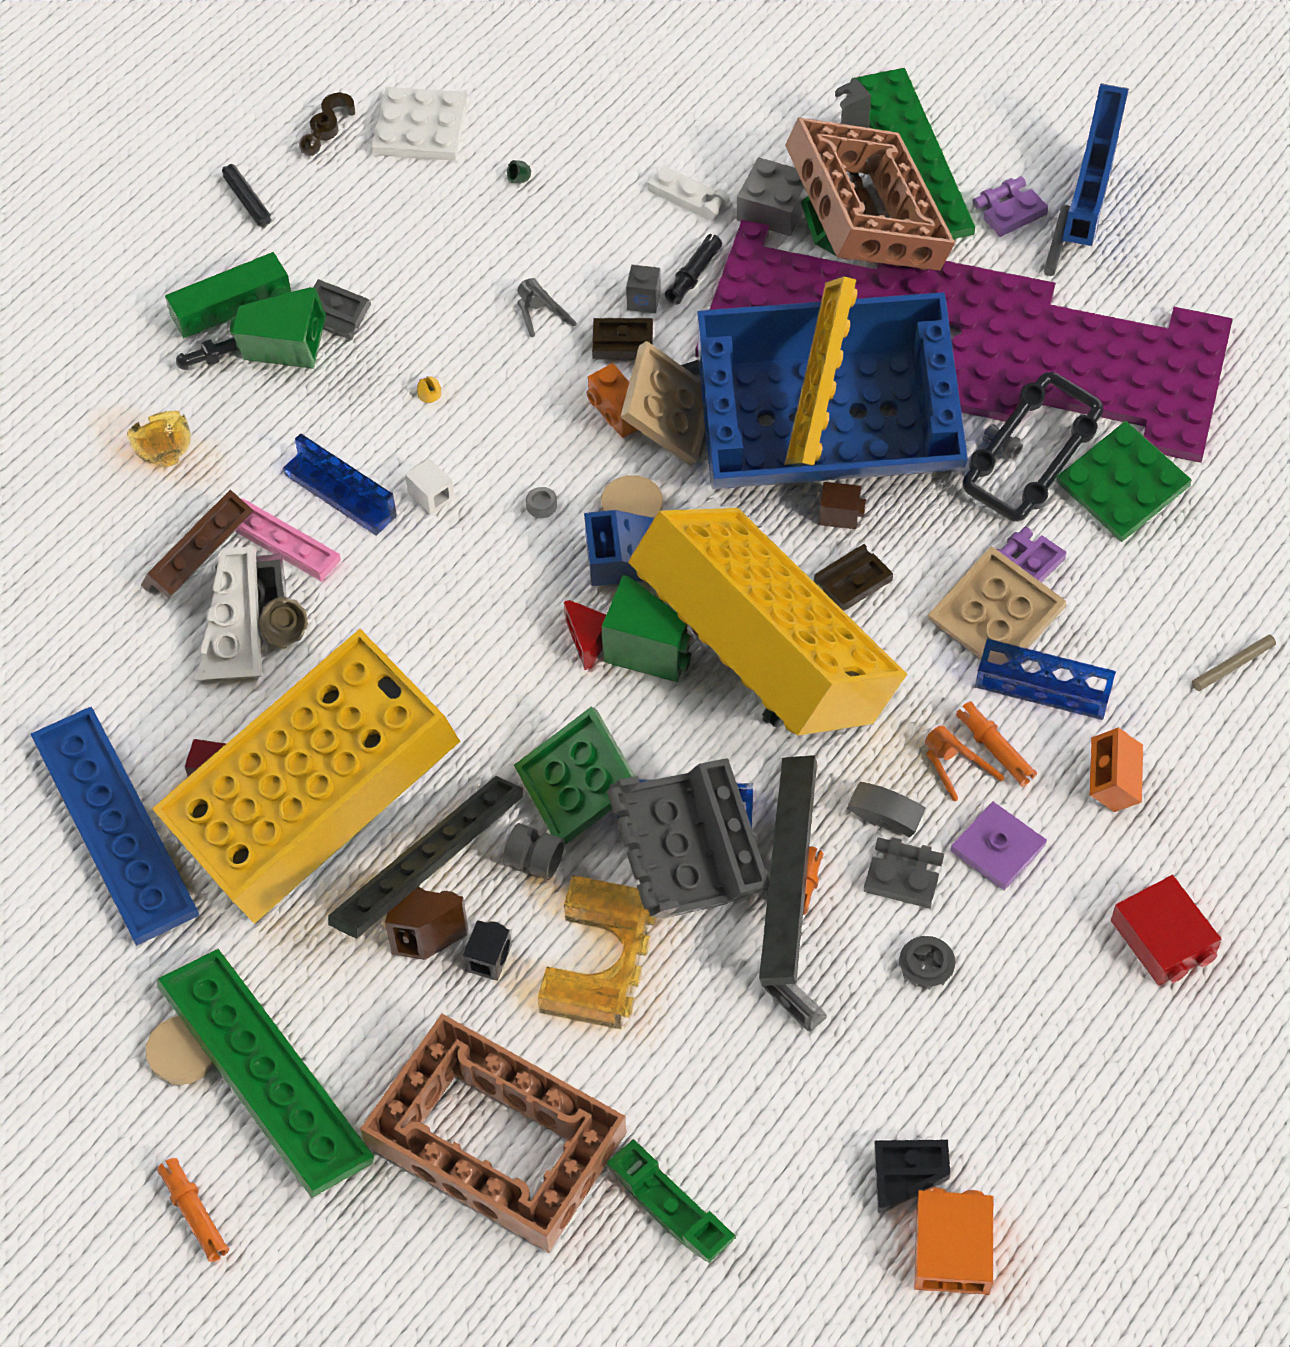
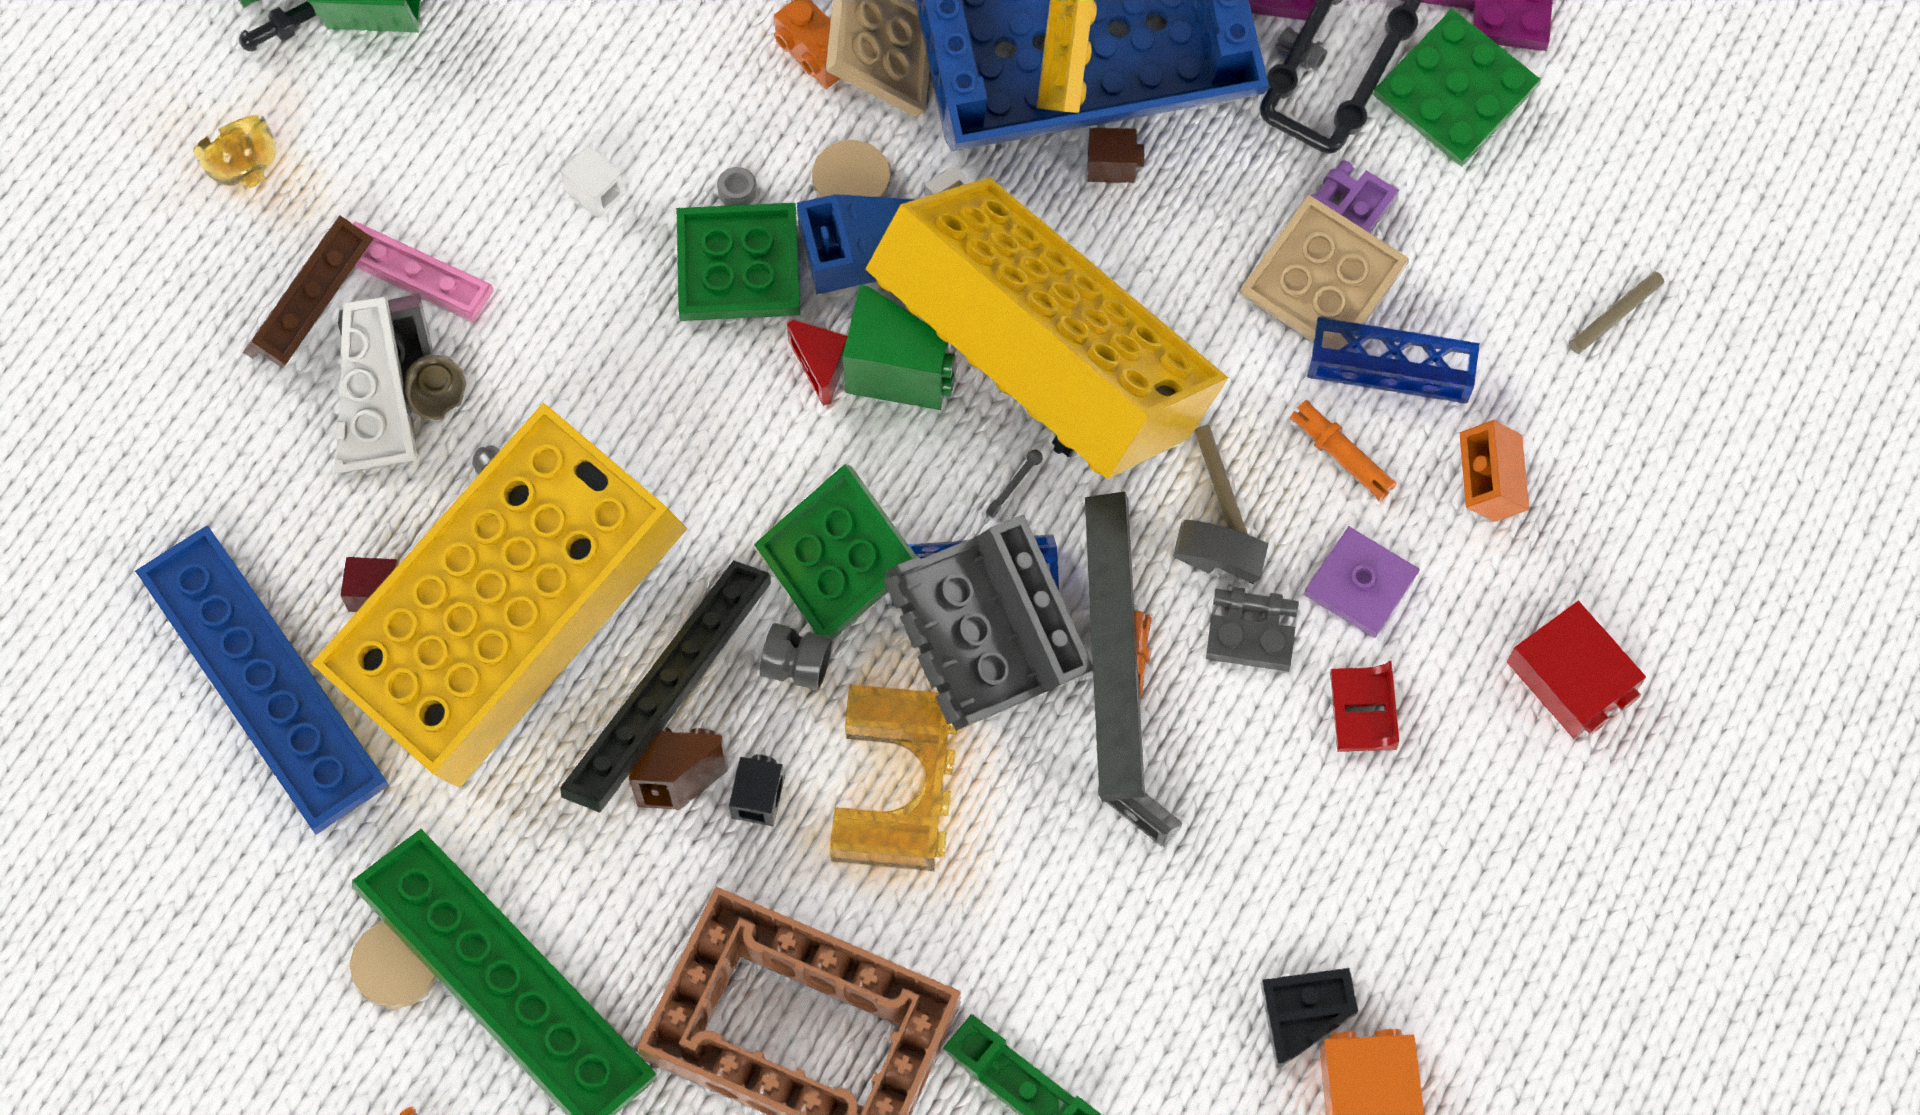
camera: 10 degrees left, 10 degrees up
(341, 486) = (479, 192): clear blue fence -> none
(423, 391) = (565, 52): yellow hinge -> none
(533, 555) = (737, 261): none -> green plate
(746, 725) = (1034, 457): none -> dark grey hinge
(853, 577) = (1140, 249): dark brown plate -> none
(893, 754) = (1220, 479): none -> dark tan bar
(921, 948) = (1284, 726): dark grey gear -> none
(945, 745) = (1282, 460): orange plant -> none
(987, 926) = (1361, 689): none -> red piece

